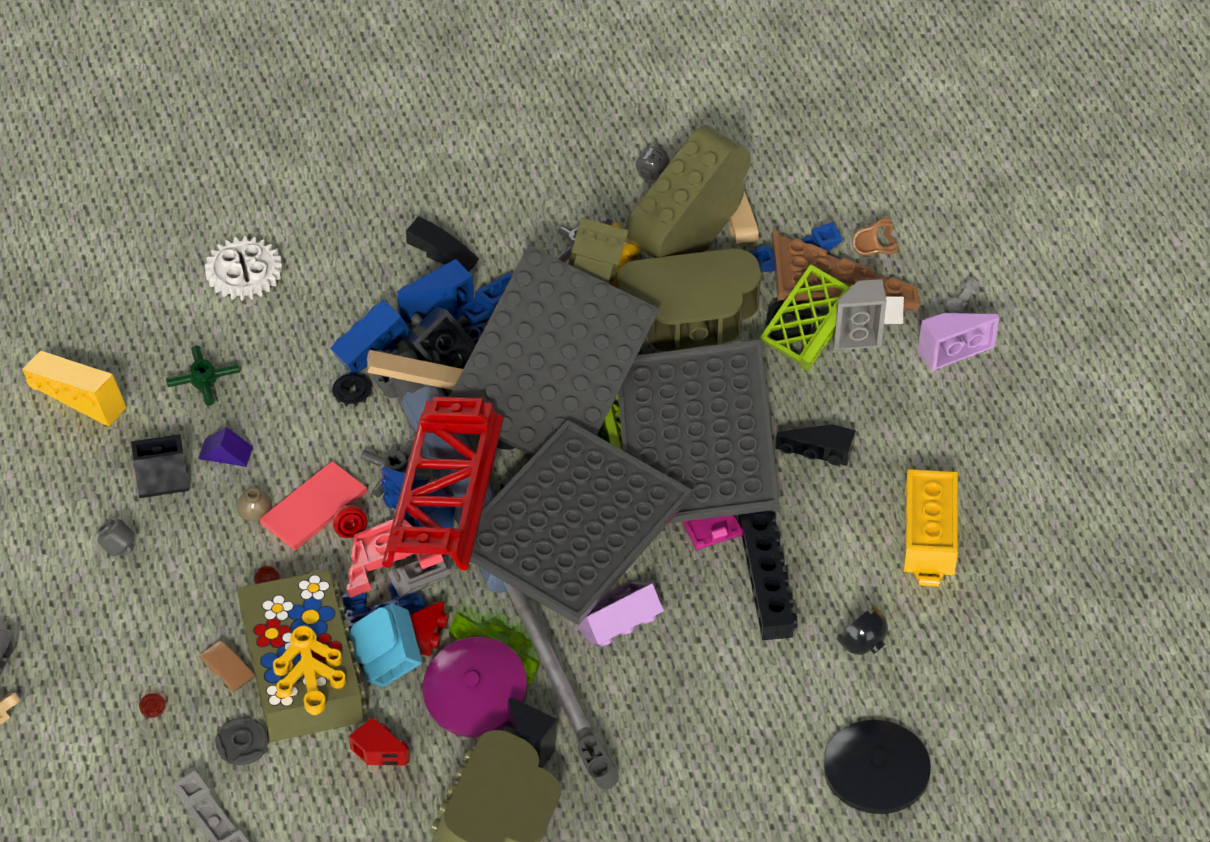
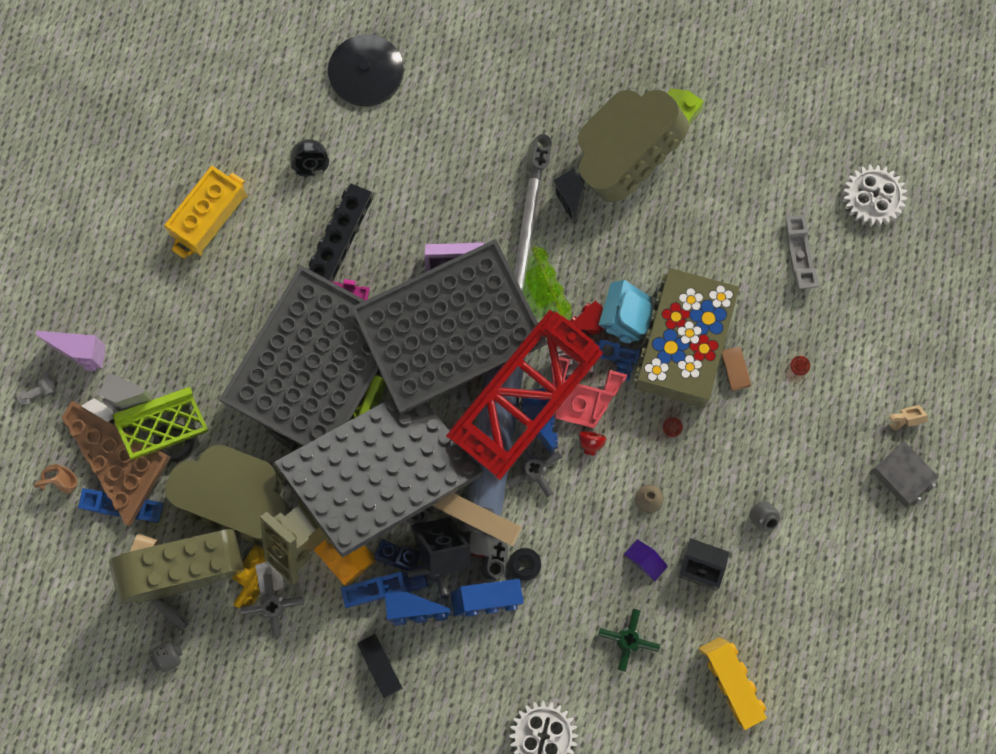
camera: 145 degrees left, 25 degrees up
(234, 744) = (750, 312): dark grey tile -> none
(308, 667) = (695, 303): yellow plant -> none
(313, 505) = (607, 473): coral tile -> none
(378, 746) = (669, 249): red slope -> none
(471, 686) = (582, 256): magenta dish -> none
(824, 443) = (222, 316): black slope -> none

